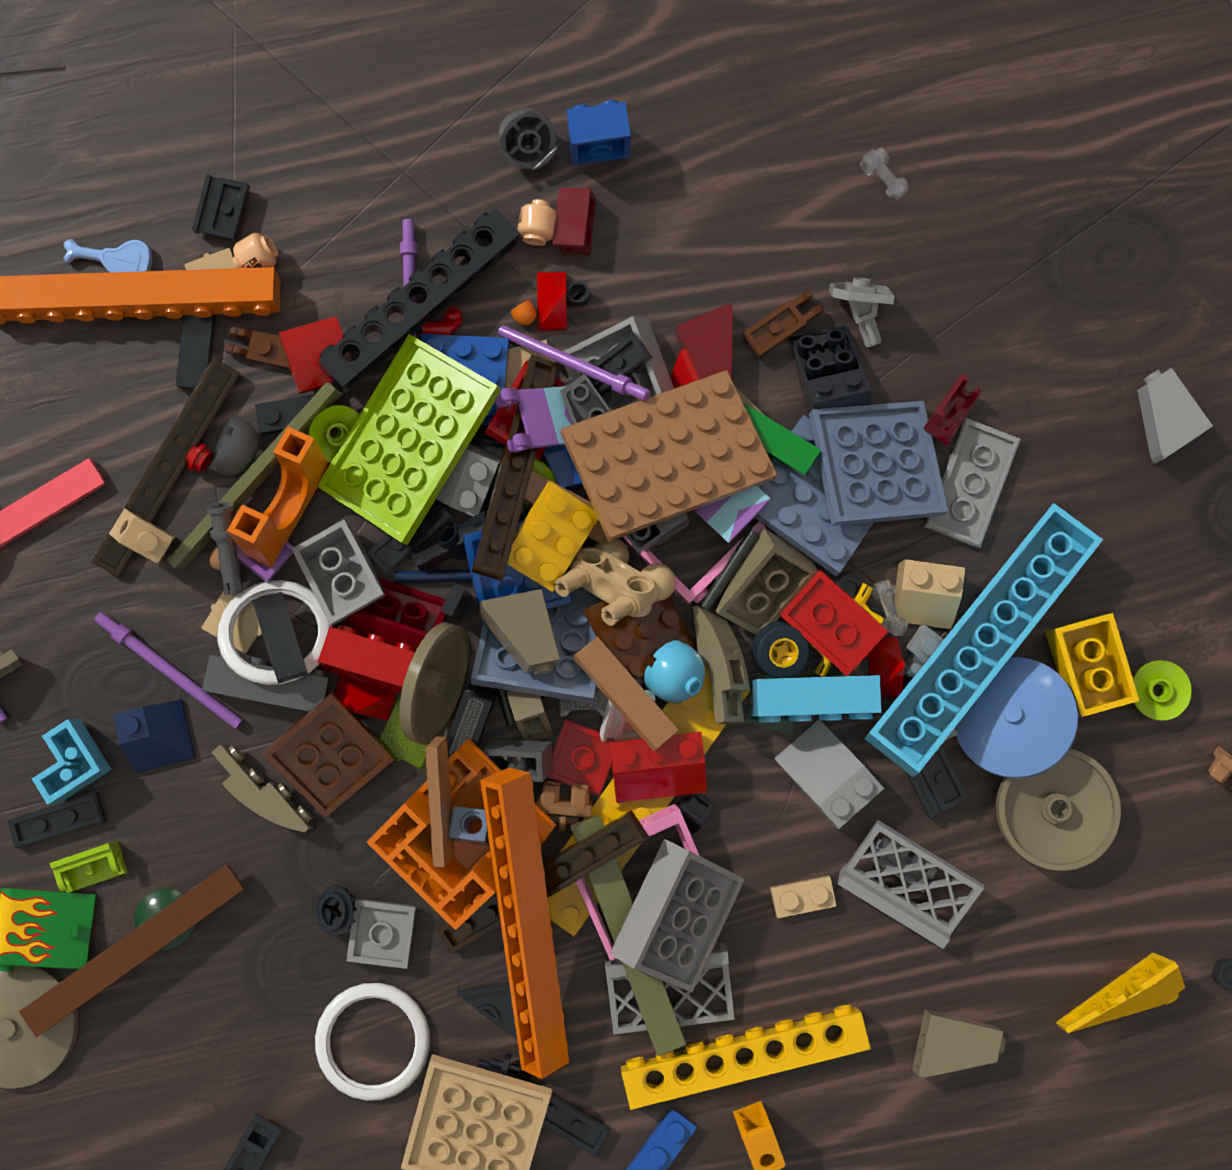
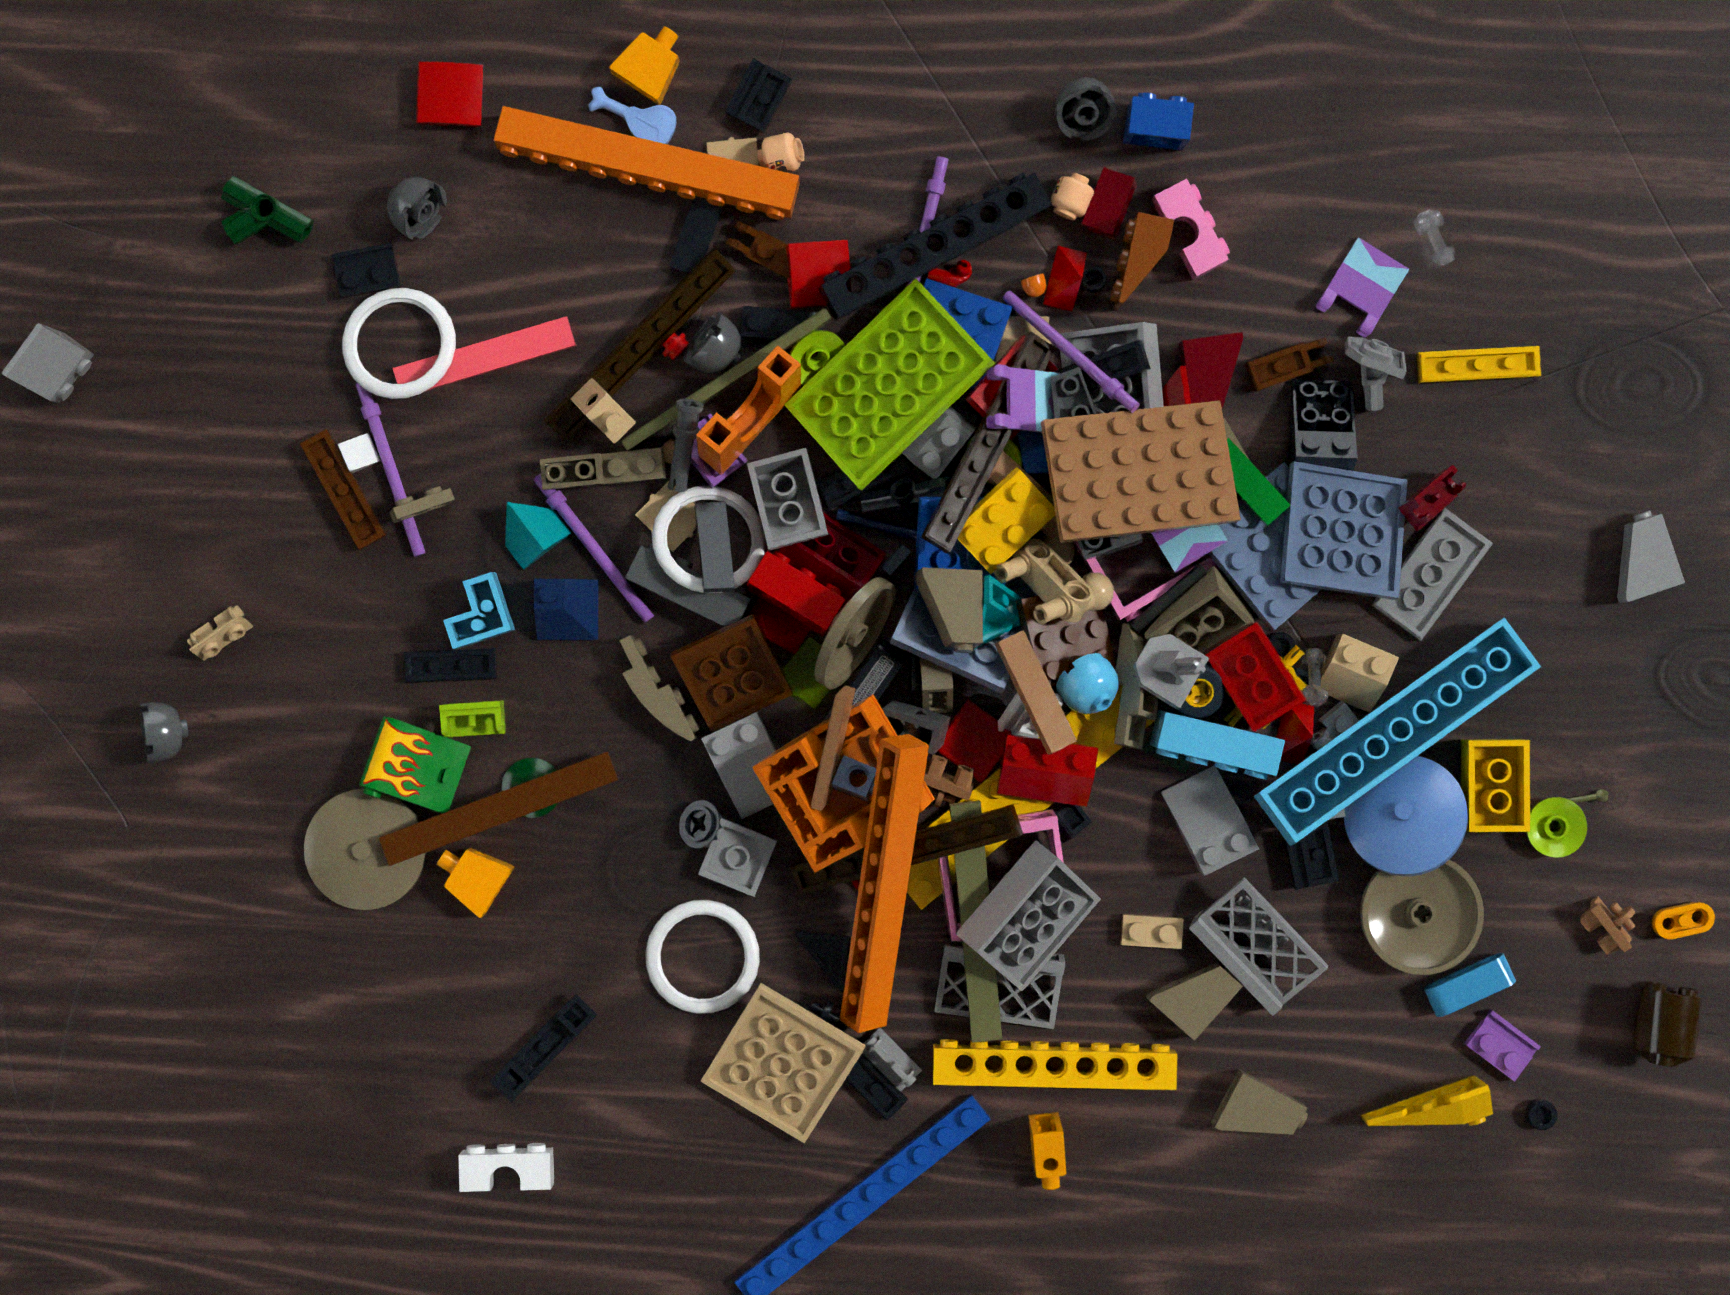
camera: 20 degrees right, 5 degrees up
(105, 670) = (532, 532): none -> teal slope
(109, 206) = (648, 64): none -> light orange torso
(128, 1025) = (475, 878): none -> light orange torso
(157, 593) = (602, 469): none -> dark tan slope
(348, 831) = (734, 753): none -> light grey slope
(568, 624) = (998, 609): none -> teal slope
(583, 1094) = (891, 1059): none -> light grey hinge
(618, 242) = (1146, 244): none -> dark orange slope
(641, 204) = (1182, 204): none -> bright pink arch
(748, 637) = (1169, 668): none -> light grey piece
(832, 230) = (1366, 281): none -> medium lavender flag
(864, 951) = (1196, 998): none -> dark tan slope
(958, 278) = (1478, 364): none -> yellow tile
(1123, 865) = (1469, 984): none -> dark azure beam
(1171, 916) = (1502, 1045): none -> medium lavender plate
(1193, 649) = (1601, 795): none -> olive hinge

